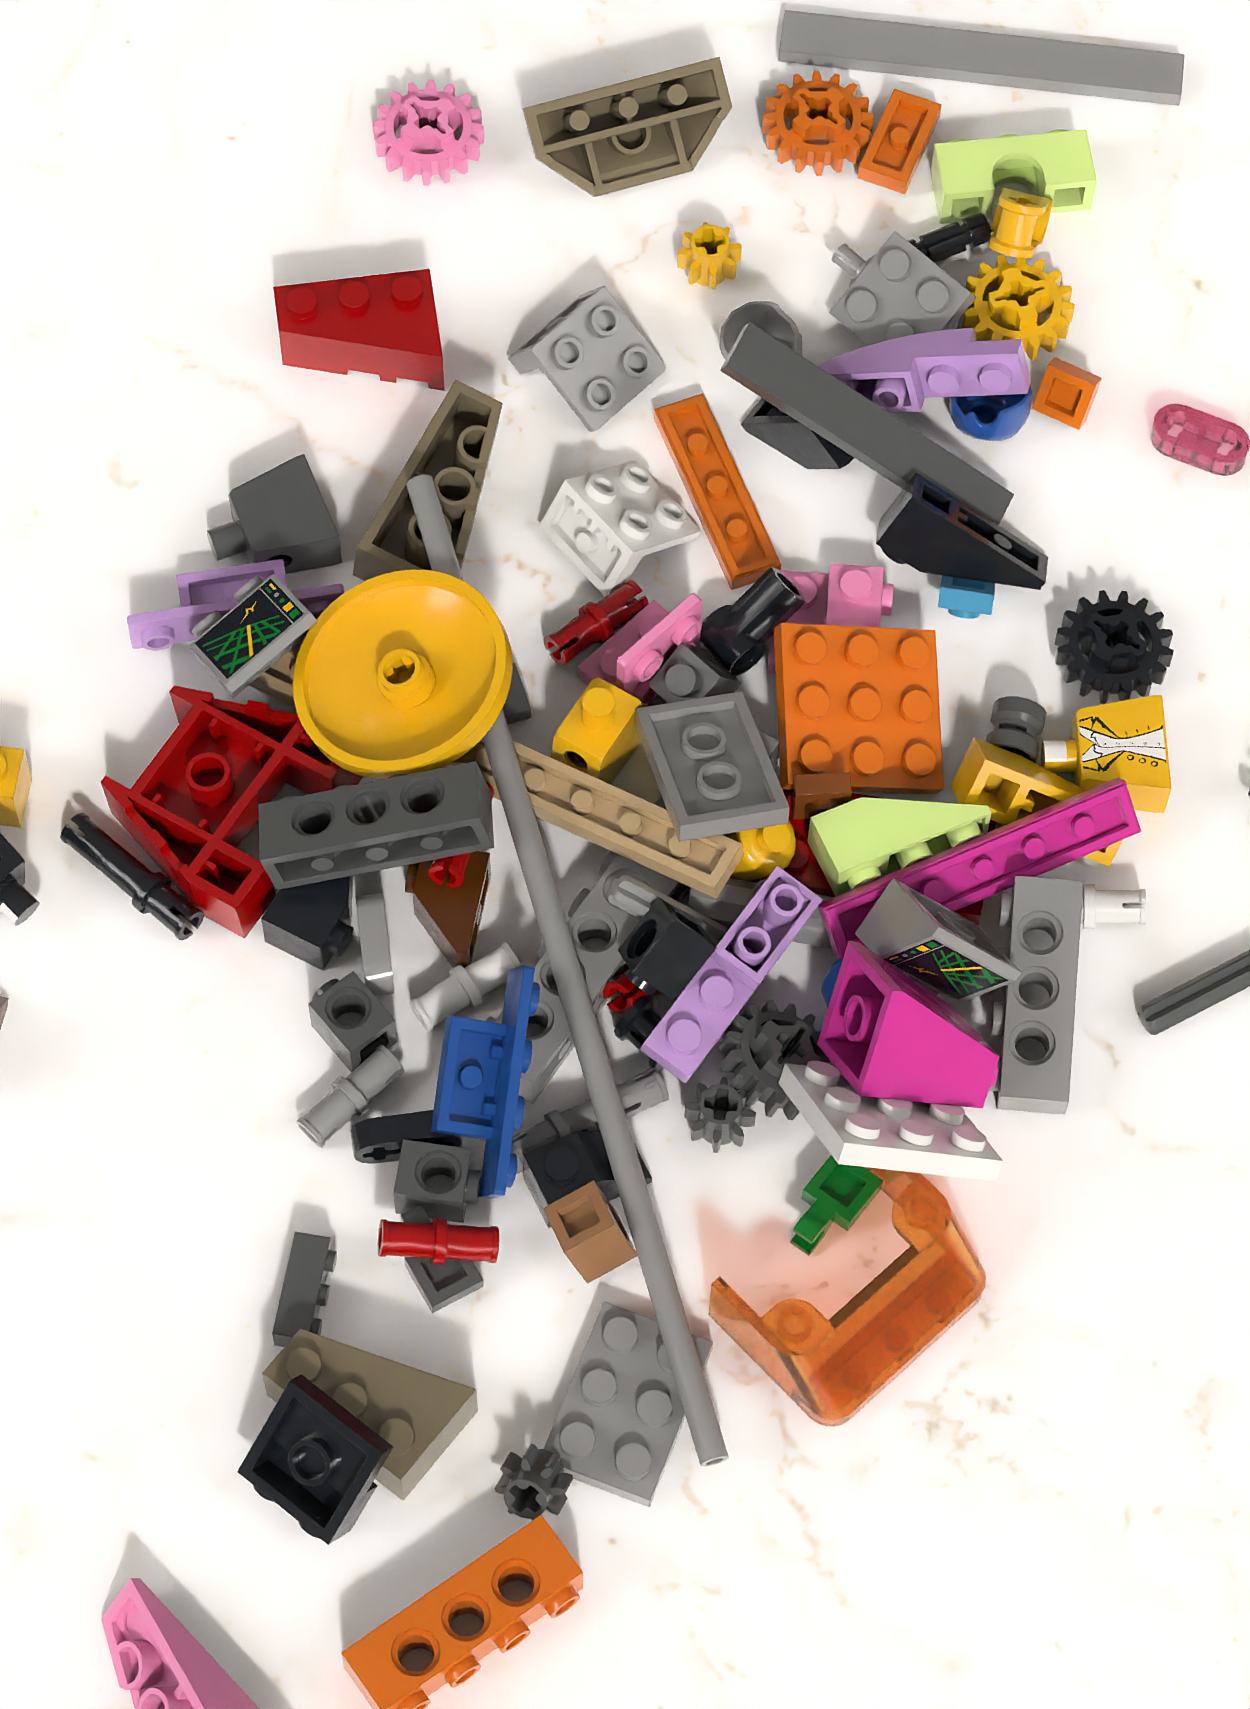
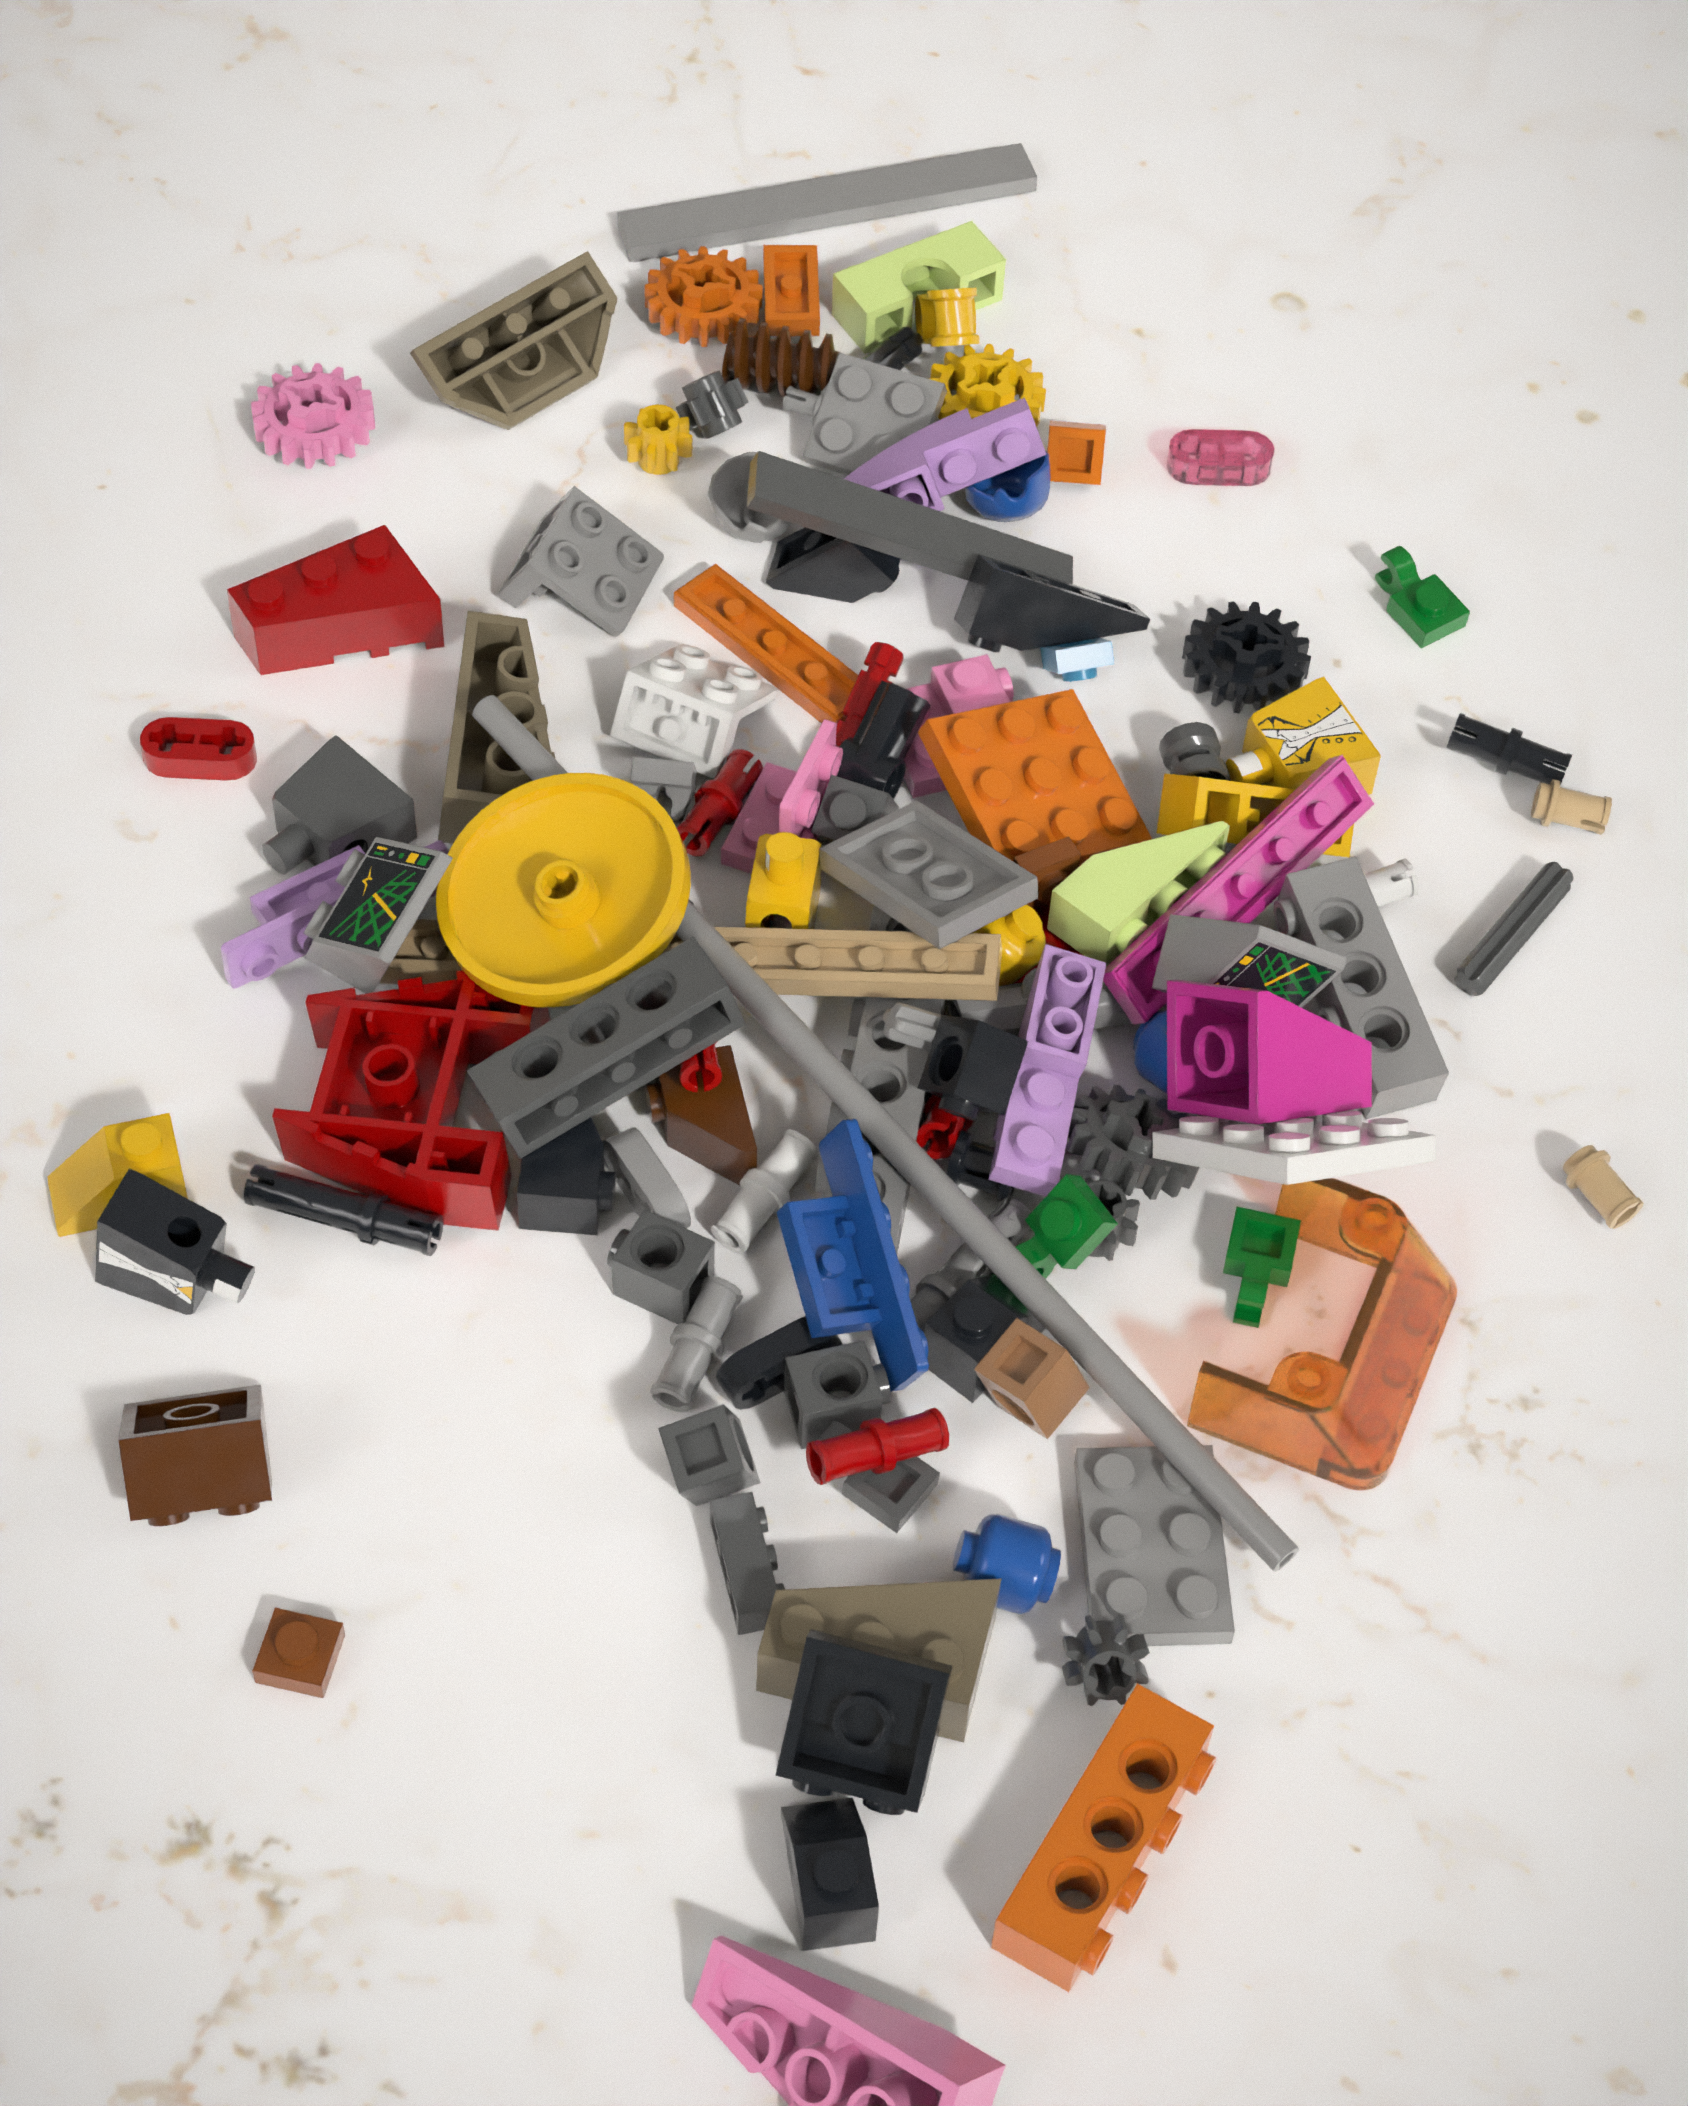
camera: 25 degrees left, 10 degrees down
(200, 418) = (198, 748): none -> red beam
(245, 1560) = (830, 1874): none -> black slope
(308, 1196) = (709, 1455): none -> dark grey brick
(500, 1373) = (1011, 1552): none -> blue head
(568, 589) = (666, 776): none -> light grey tile
(681, 1118) = (1066, 1226): none -> green plate
(770, 237) = (712, 404): none -> dark grey gear
(788, 545) = (882, 662): none -> red axle
(848, 213) = (778, 360): none -> reddish brown piece
(1157, 1246) = (1602, 1186): none -> tan pin

